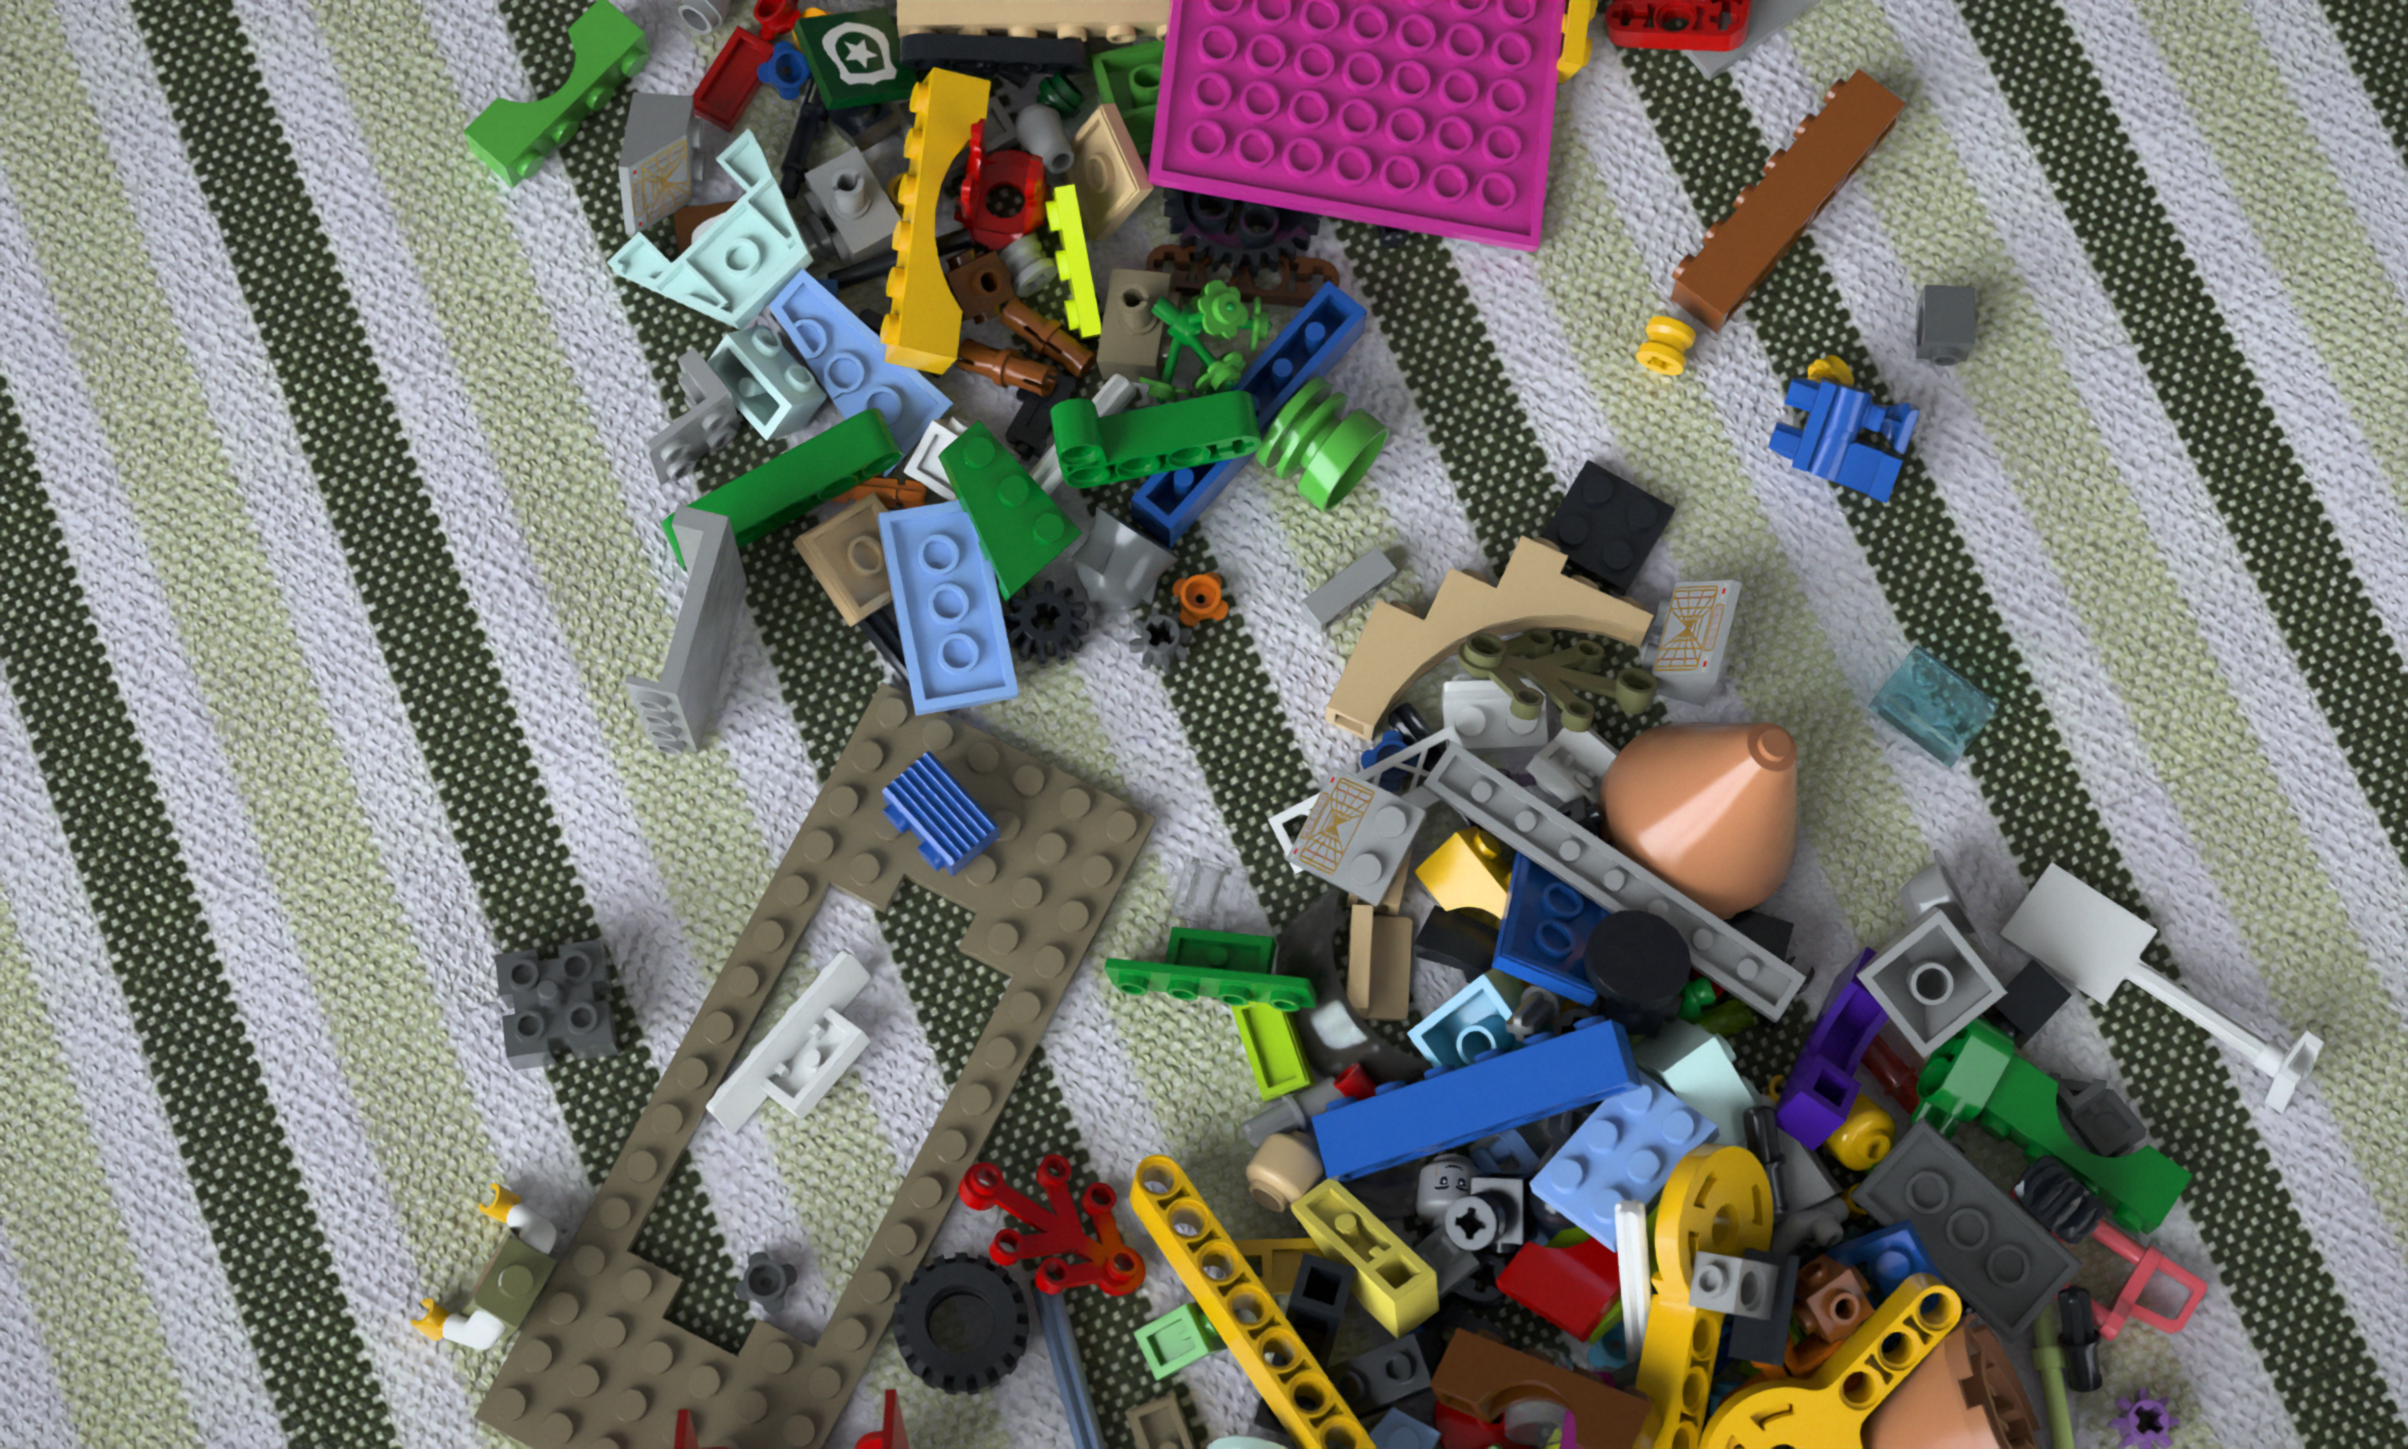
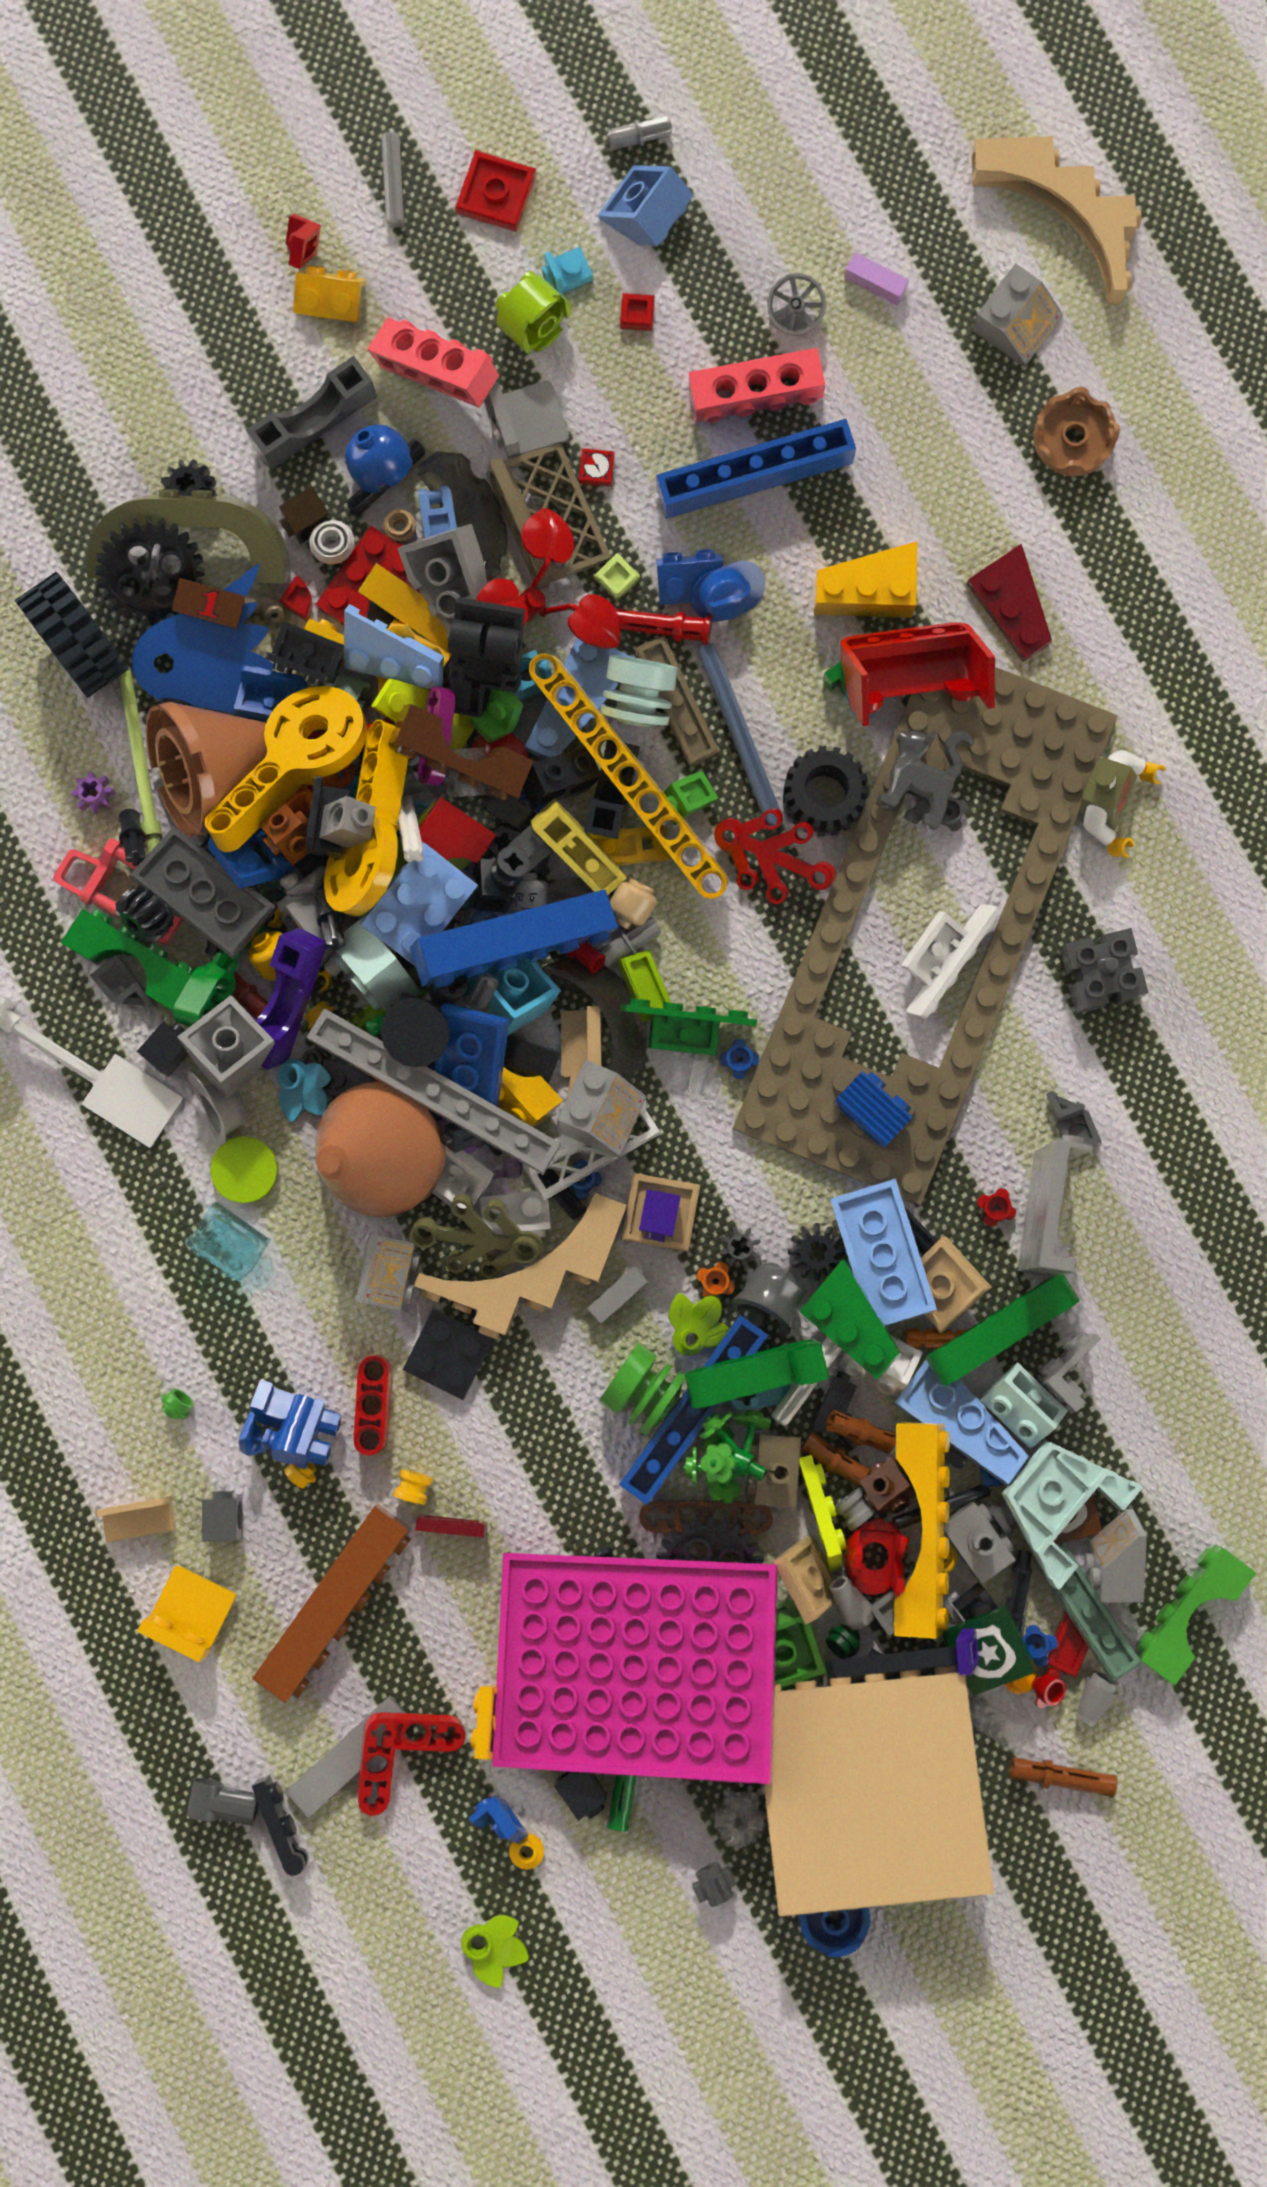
camera: 175 degrees left, 10 degrees up
(633, 782) = (1073, 1119): none -> dark grey slope
(695, 73) = (1095, 1623): none -> sand green tile
(767, 657) = (992, 1216): none -> red plate
(801, 1318) = (922, 781): none -> dark grey animal
(889, 51) = (967, 1651): none -> dark purple tile
(1136, 907) = (739, 1049): none -> blue plate
(1228, 541) = (697, 1319): none -> lime plate
(1275, 702) = (685, 1216): none -> tan plate
(1278, 686) = (659, 1215): none -> dark purple brick
(1612, 288) = (451, 1526): none -> dark red tile
(1727, 439) = (364, 1420): none -> red beam
(1784, 1038) = (312, 1016): none -> yellow plate
(1813, 926) = (305, 1092): none -> medium azure plate
(1906, 816) = (244, 1170): none -> lime tile
(1996, 198) = (188, 1614): none -> yellow bracket
(2010, 487) = (177, 1404): none -> bright green plate
(2069, 337) = (137, 1518): none -> tan panel

